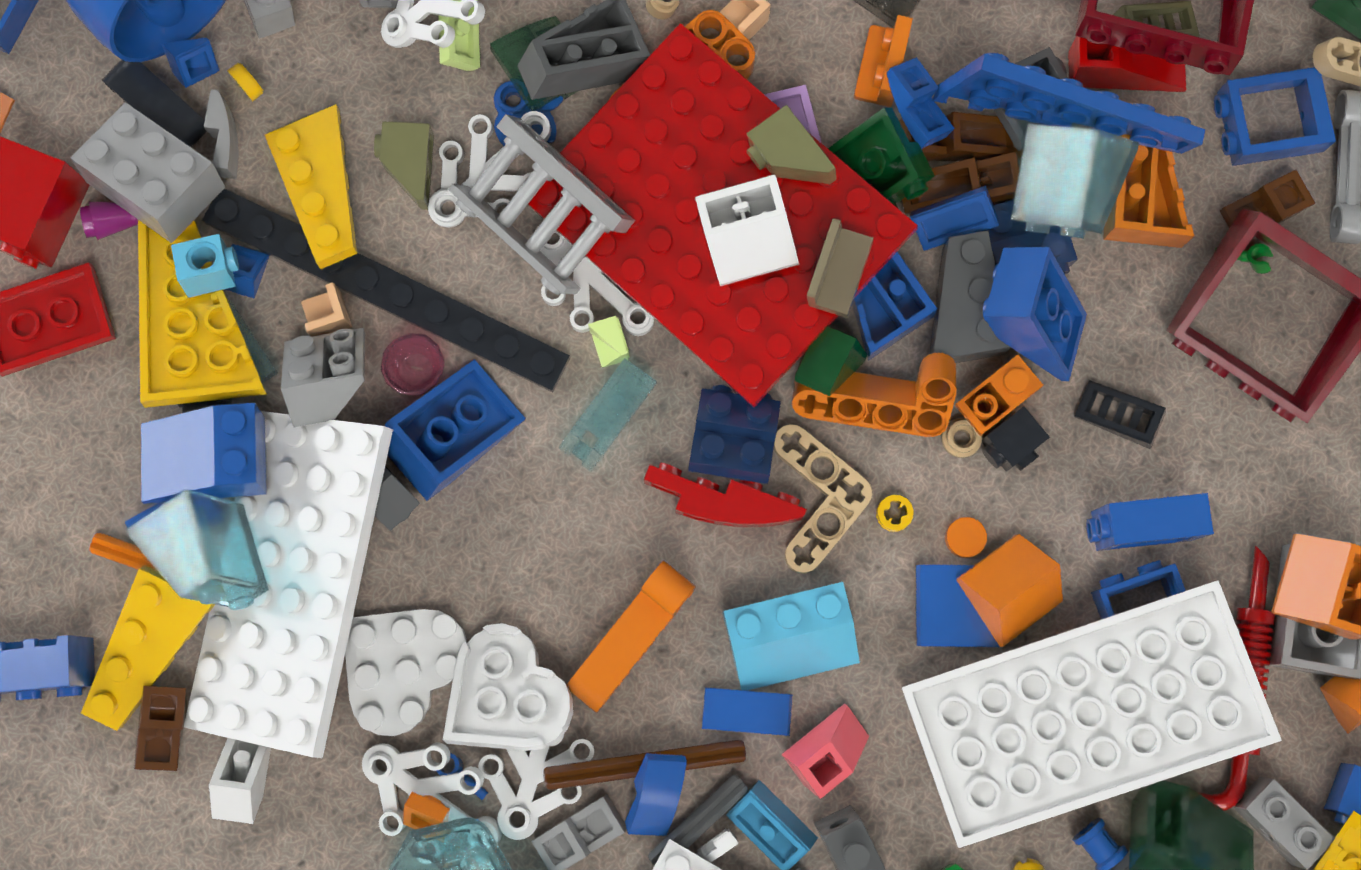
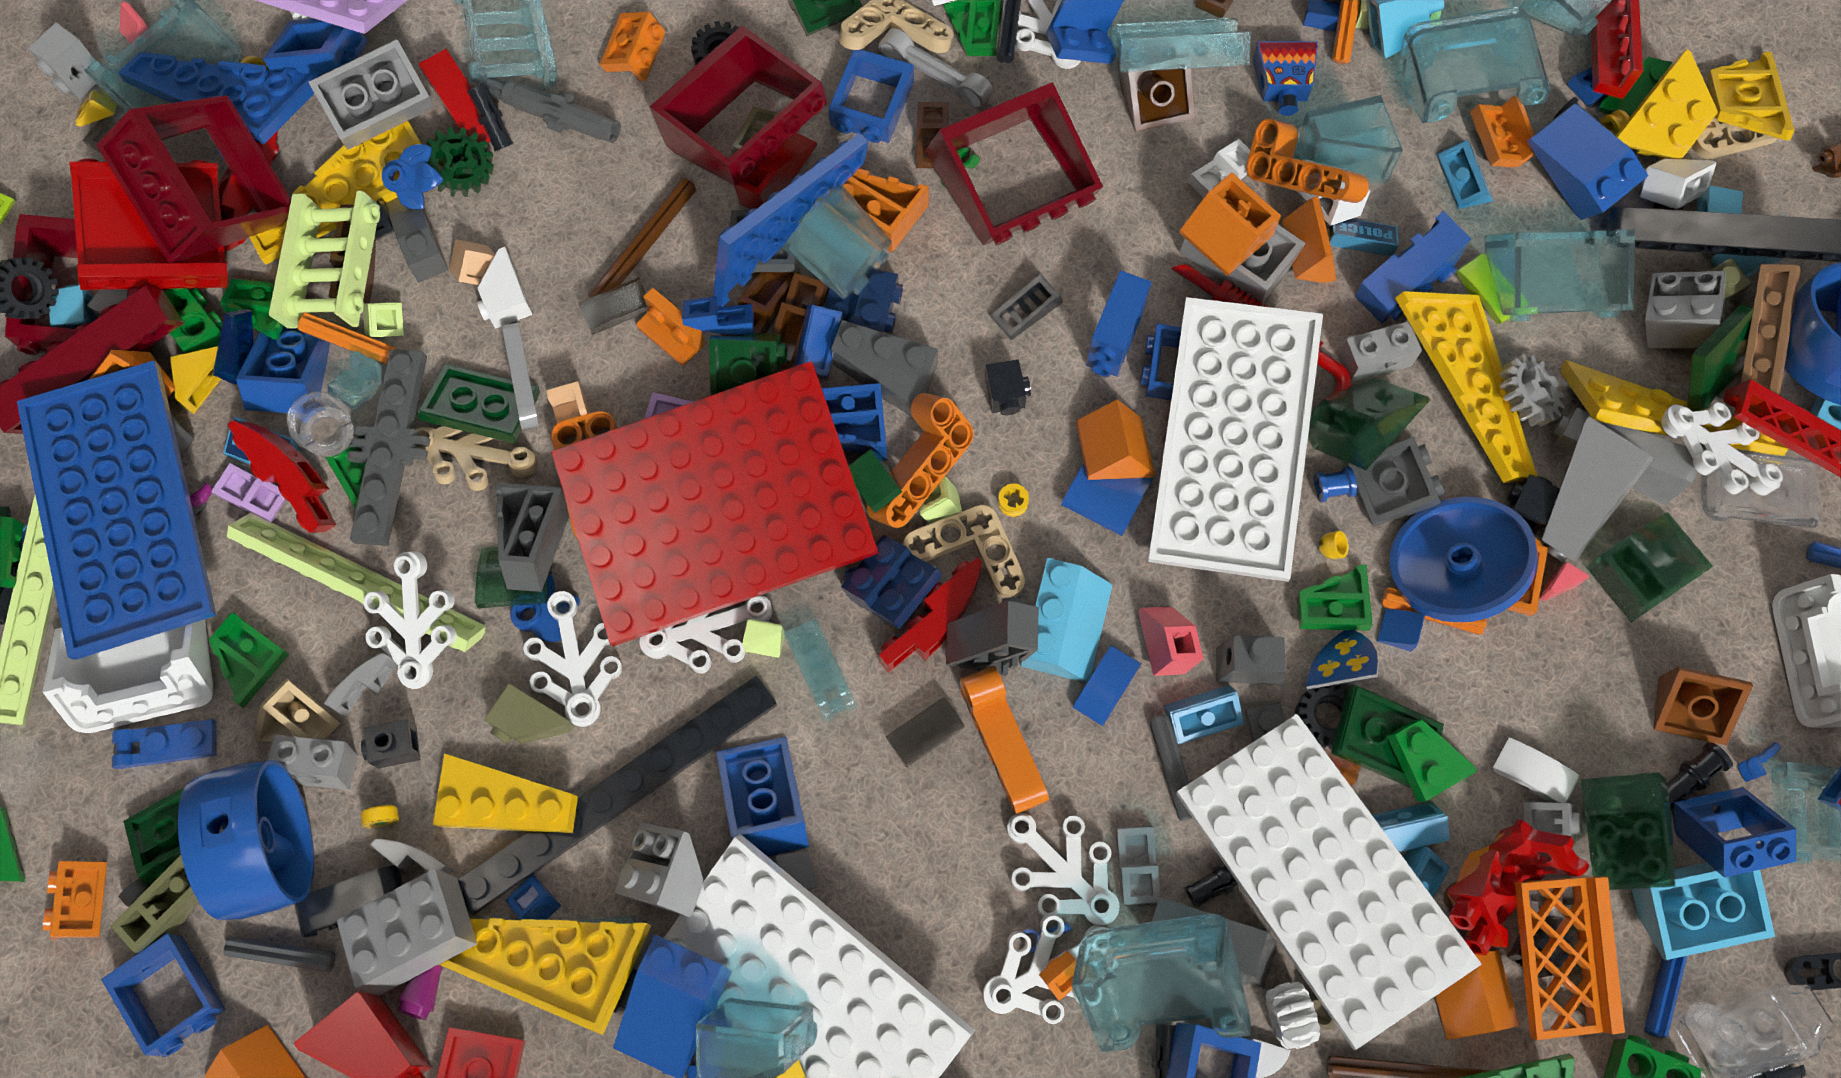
camera: 60 degrees left, 10 degrees down
(79, 70) = (279, 954): none -> dark grey axle
(191, 60) = (332, 853): blue slope -> none
(193, 254) = (525, 931): medium azure brick -> none
(317, 49) = (391, 744): none -> black brick
(326, 312) = (609, 848): light nougat panel -> none
(397, 664) = (928, 937): white plate -> none
(415, 351) = (685, 791): clear pink hair -> none
(504, 695) = (999, 861): white plate -> none
(576, 192) = (602, 606): light grey fence -> none
(601, 552) = (925, 732): none -> clear smoke plate
(628, 766) = (1108, 784): reddish brown axle -> none
(658, 794) = (1136, 780): blue slope -> none
(717, 846) = (1199, 754): white tile -> none
(722, 569) = (993, 636): none -> dark grey wedge
(747, 230) = (744, 478): white slope -> none
(789, 149) = (702, 417): olive slope -> none
(839, 270) = (814, 430): dark tan panel -> none
(850, 441) = (941, 503): none -> yellowish green slope
(955, 449) = (987, 415): tan plate -> none
(966, 537) = (1058, 459): orange tile -> none
(999, 395) = (967, 376): orange slope -> none
(1035, 309) = (918, 317): blue slope -> none

